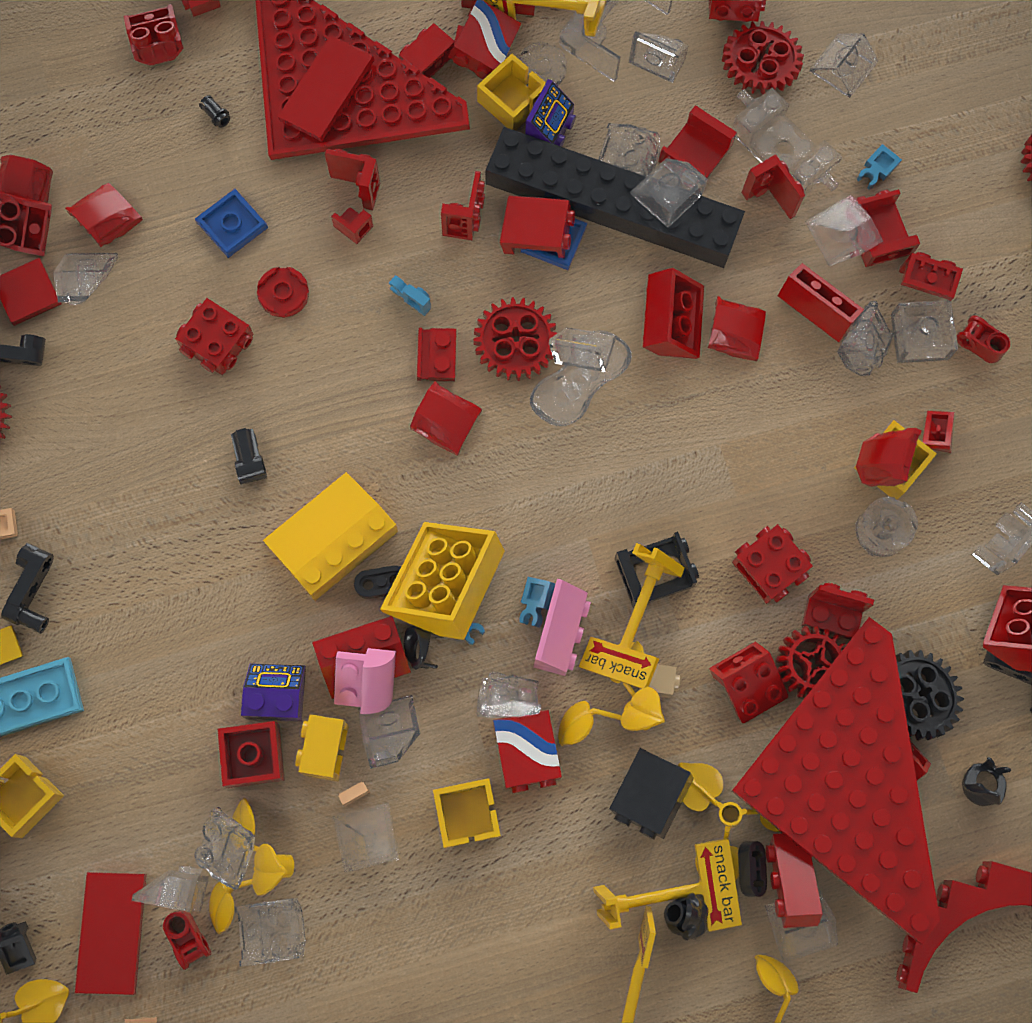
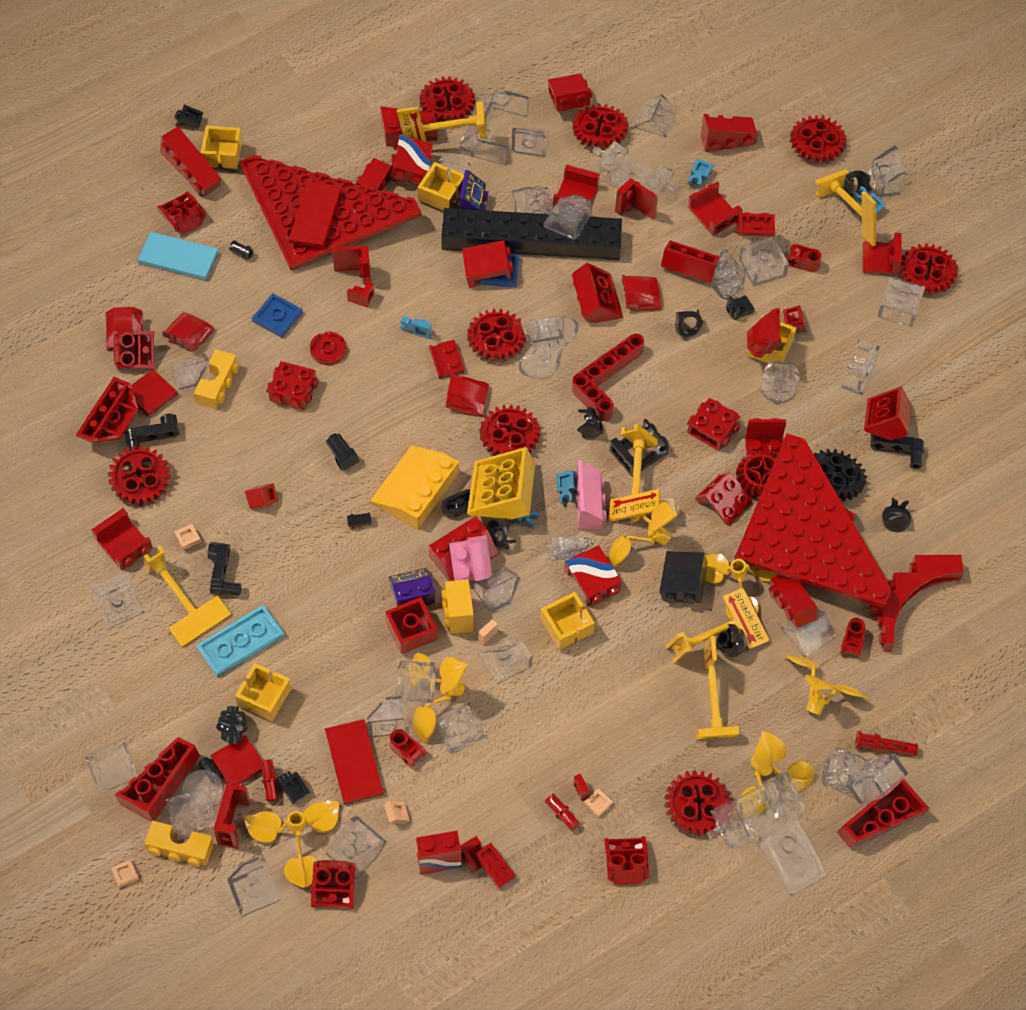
camera: 15 degrees left, 15 degrees down
(106, 316) = (212, 392): none -> yellow arch
(118, 492) = (261, 496): none -> red panel
(129, 97) = (178, 256): none -> medium azure tile
(237, 566) = (358, 519): none -> black pin
(463, 221) = (436, 270): red bracket -> none
(499, 474) = (509, 431): none -> red gear
(597, 521) = (593, 425): none -> black piece
(645, 439) = (603, 372): none -> red beam
(752, 869) = (764, 605): black beam -> none
(777, 388) = (681, 316): none -> black piece
(843, 231) = (690, 215): clear slope -> none
(859, 962) = (853, 641): none -> red piece
(867, 390) = (739, 307): none -> black bracket
(937, 116) = (727, 133): none -> red wedge

